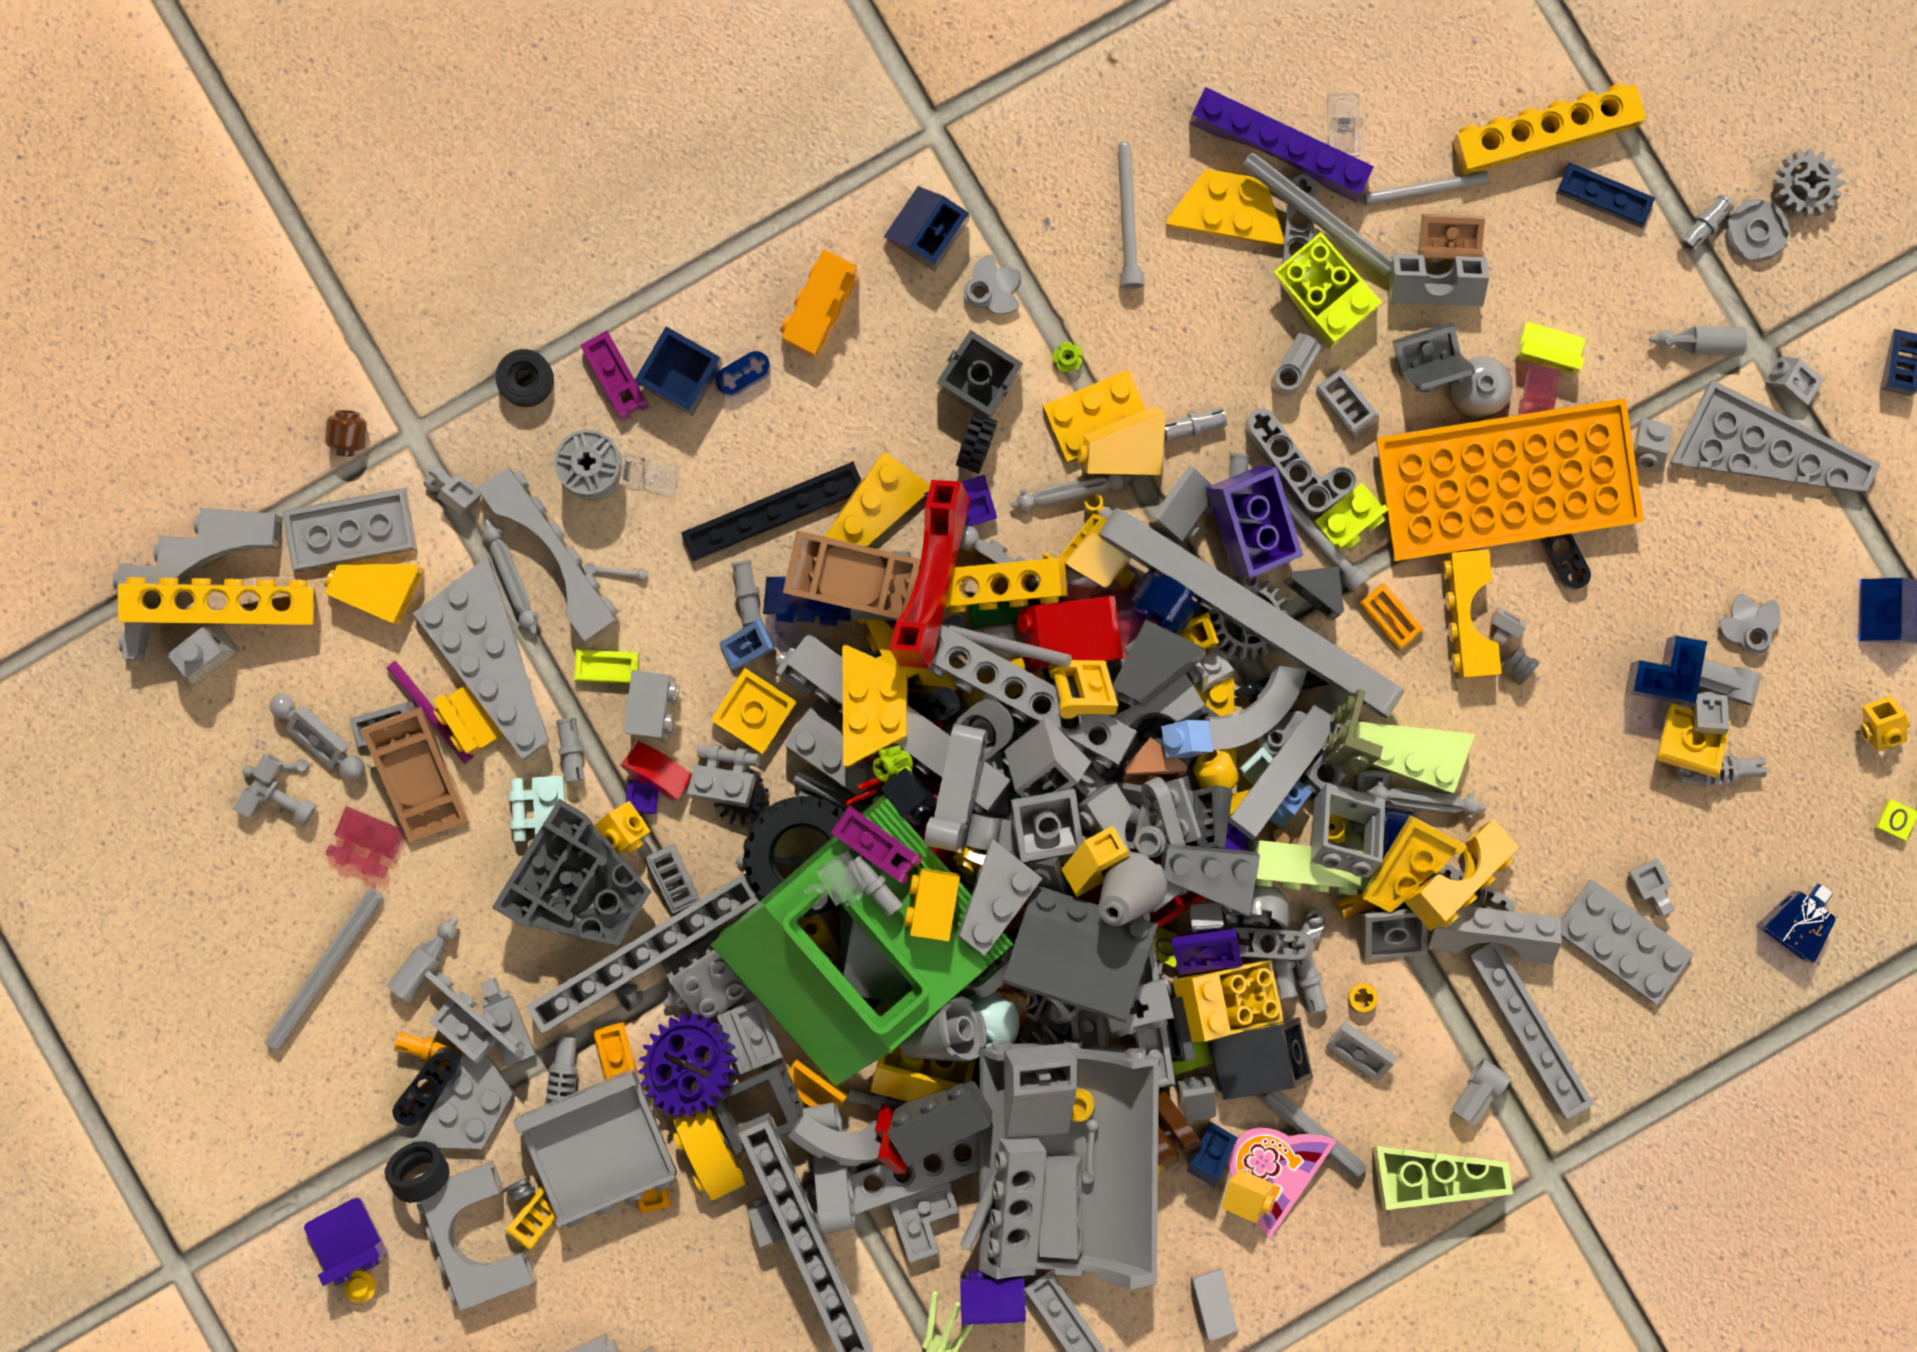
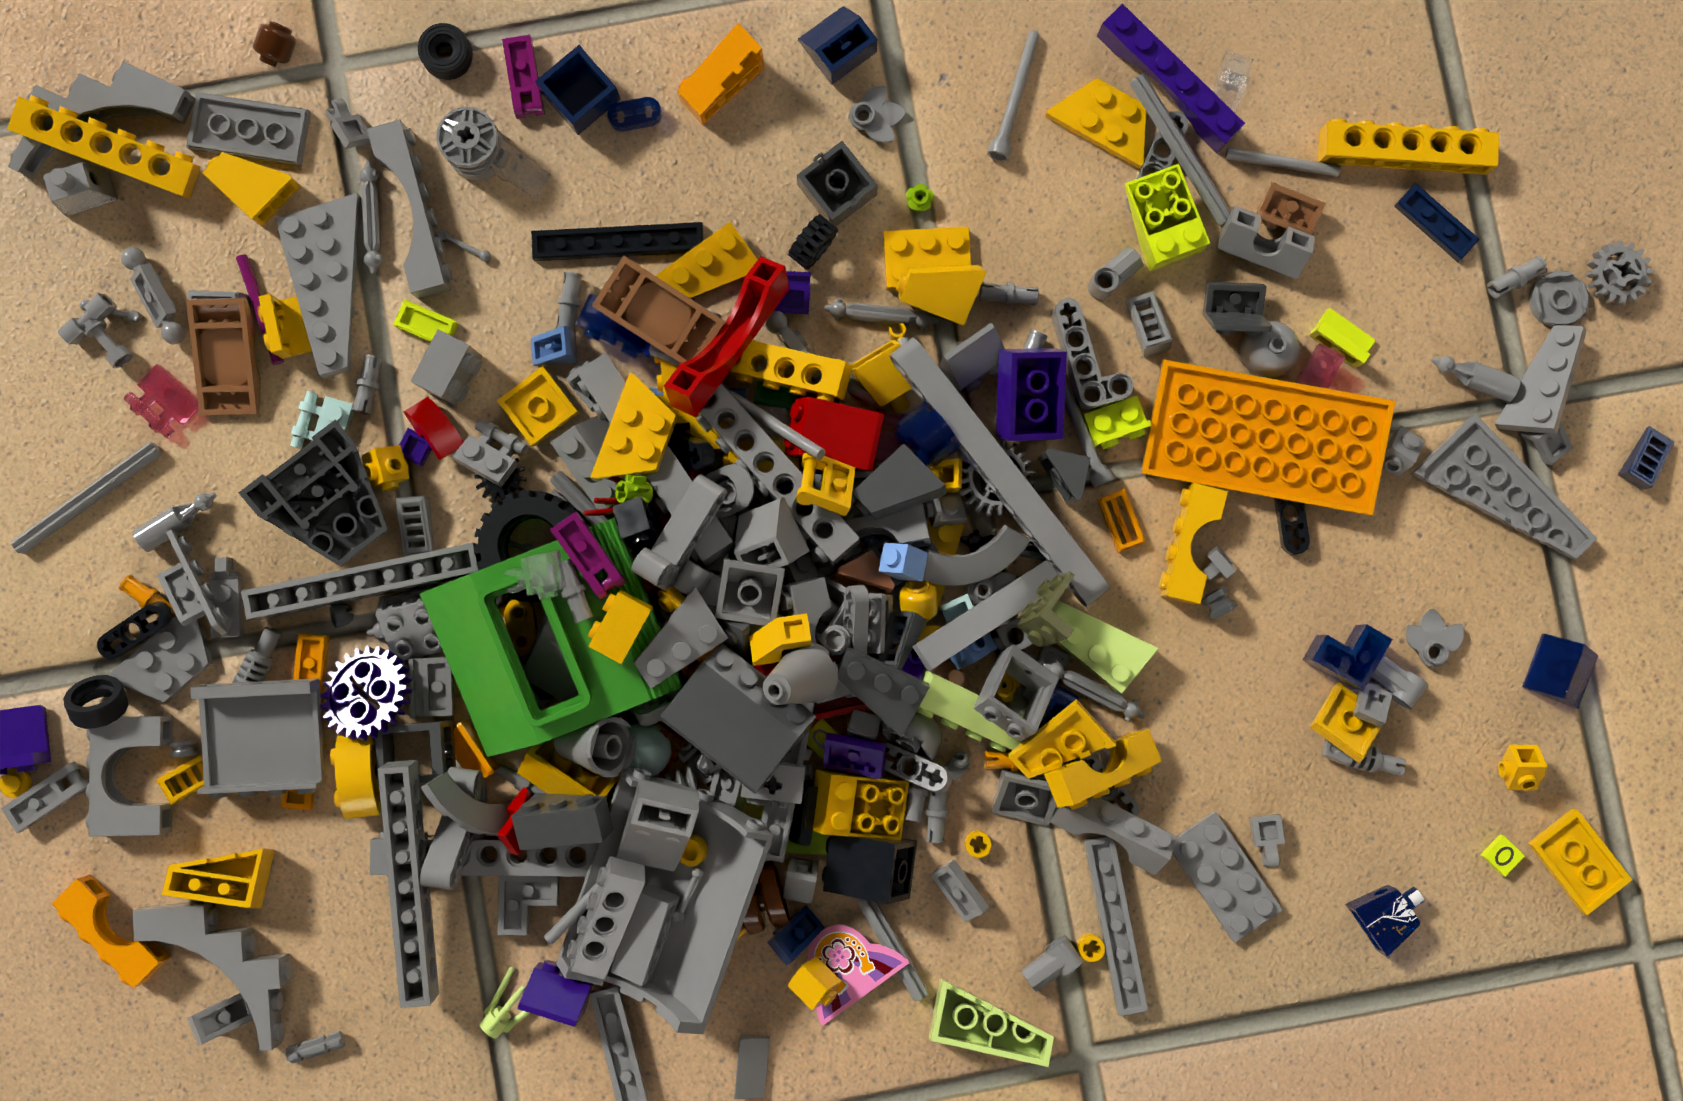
camera: 15 degrees right, 0 degrees up
(396, 1289) = (45, 797): none -> light grey plate
(611, 1306) = (225, 880): none -> yellow wedge
(1522, 1067) = (1095, 955): none -> yellow bush
(1772, 324) = (1545, 384): none -> light grey wing

